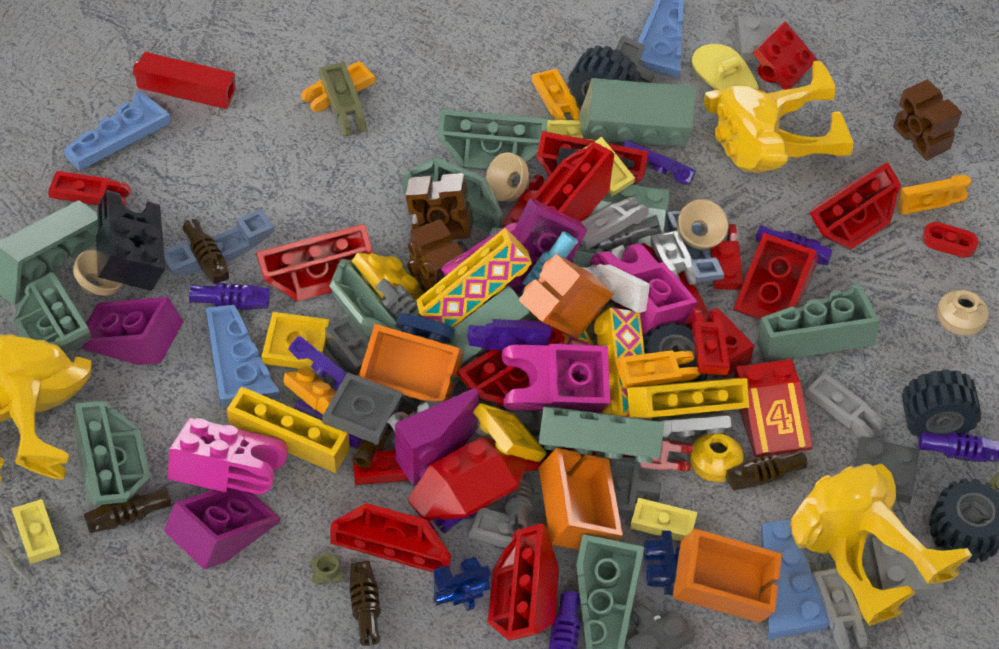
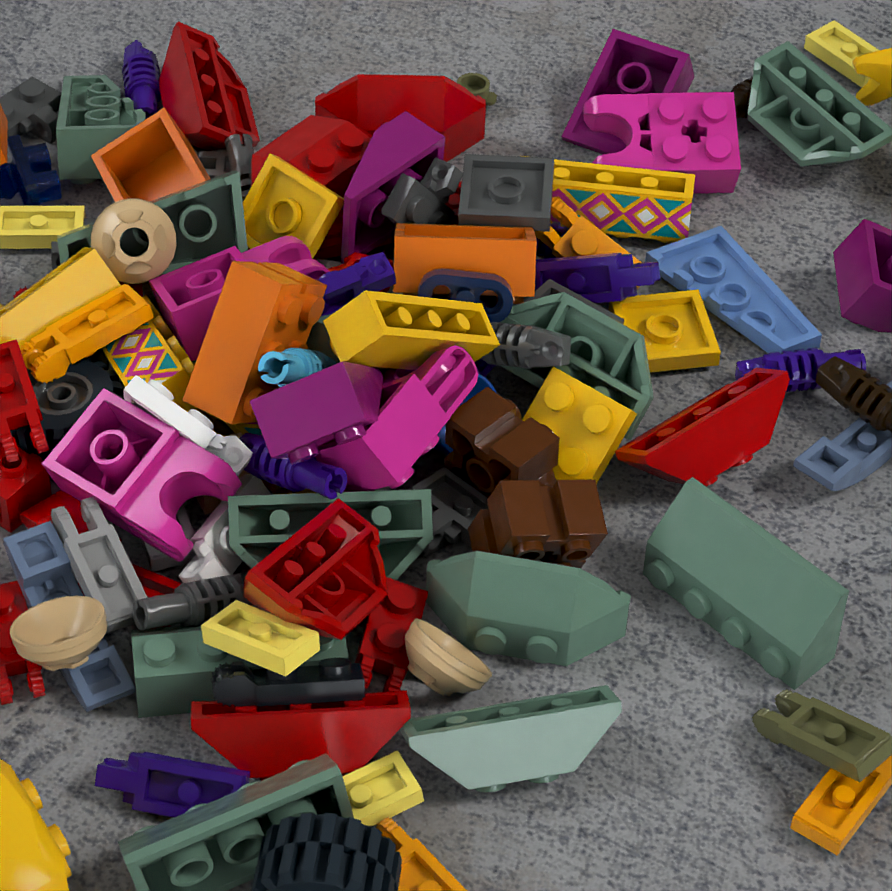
camera: 165 degrees right, 5 degrees down
(341, 173) = (746, 584): none -> sand green slope
(365, 601) = (399, 56): dark brown hinge -> none
(461, 587) = (289, 101): clear blue hips -> none
(612, 220) = (223, 569): light grey hinge -> none
(617, 404) = (134, 214): none -> tan piece

